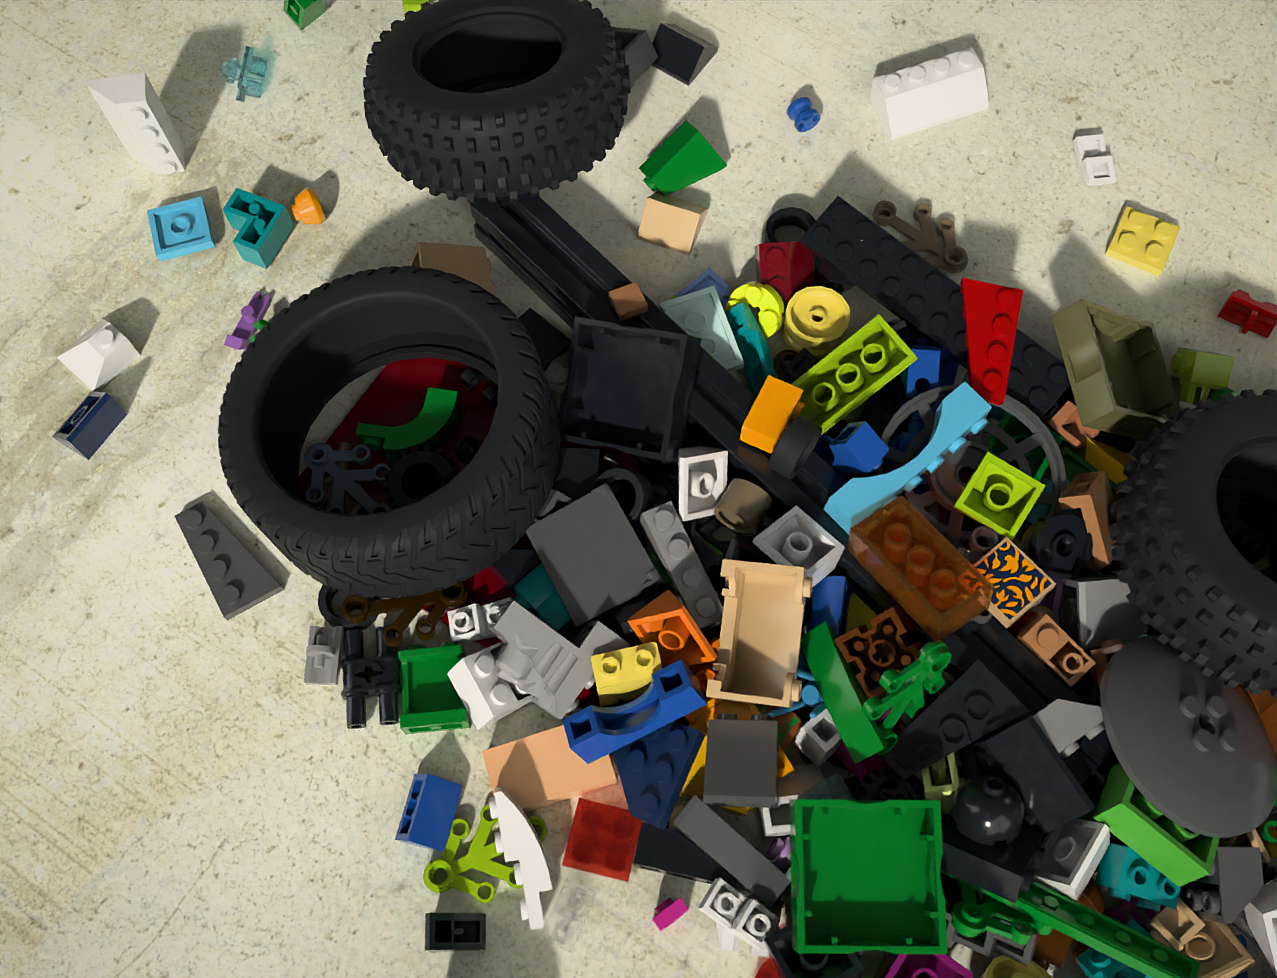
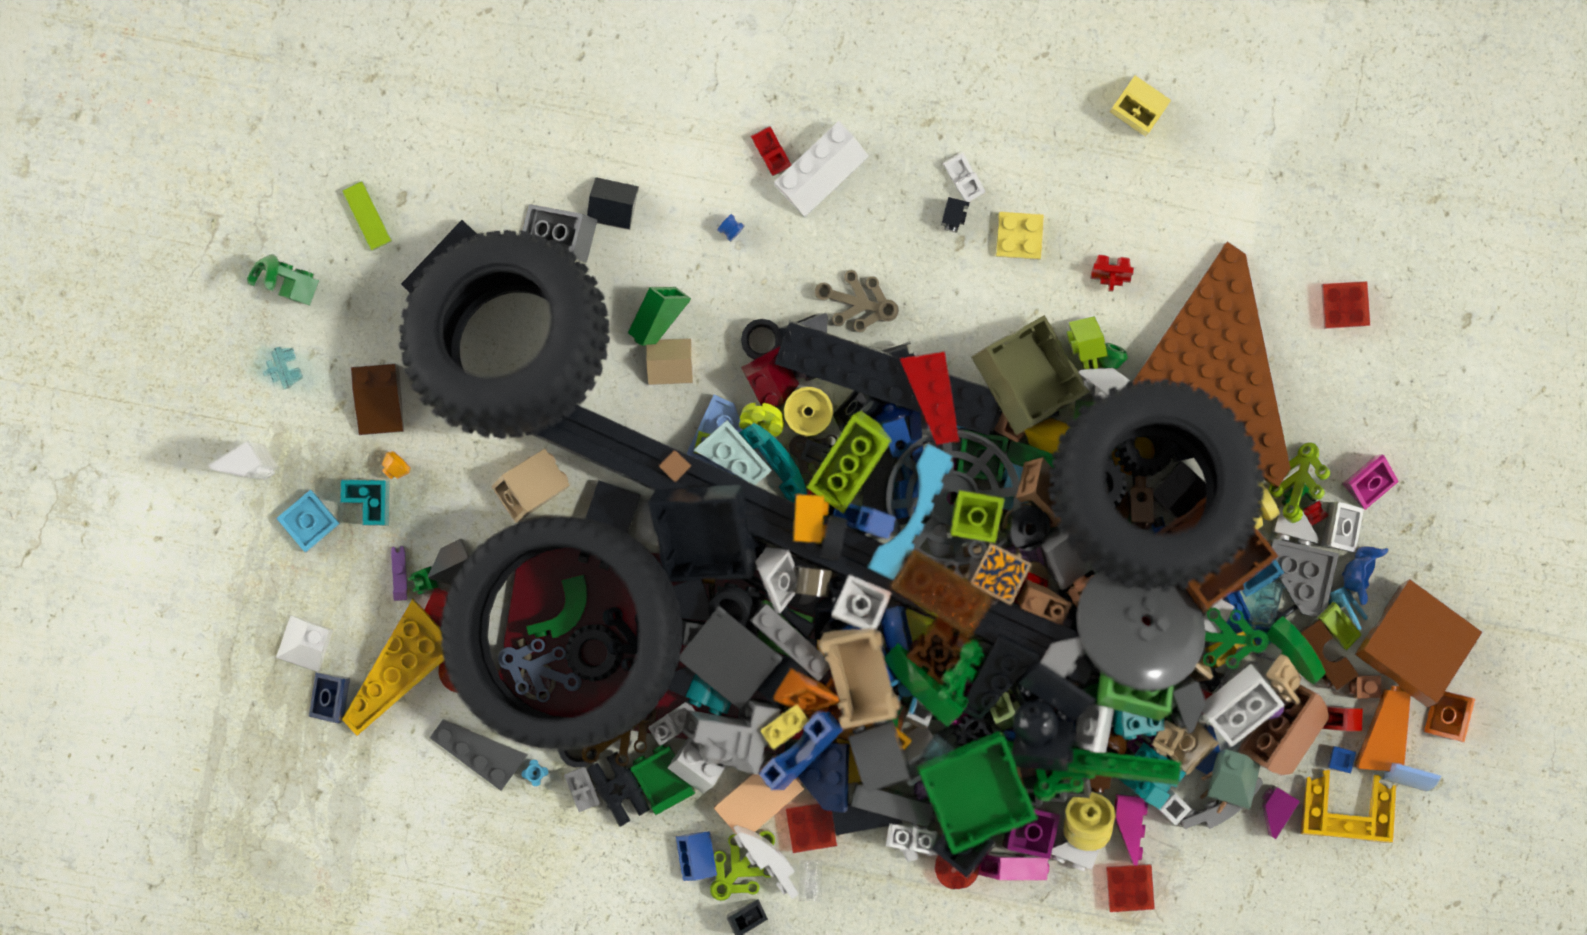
camera: 25 degrees left, 20 degrees up
(176, 422) = (404, 661): none -> yellow wing
(269, 612) = (528, 773): none -> medium azure plate
(328, 137) = (377, 399): none -> reddish brown slope
(669, 912) = (869, 852): dark pink plate -> none
(877, 58) = (771, 150): none -> red slope
(1072, 187) = (954, 214): none -> black brick

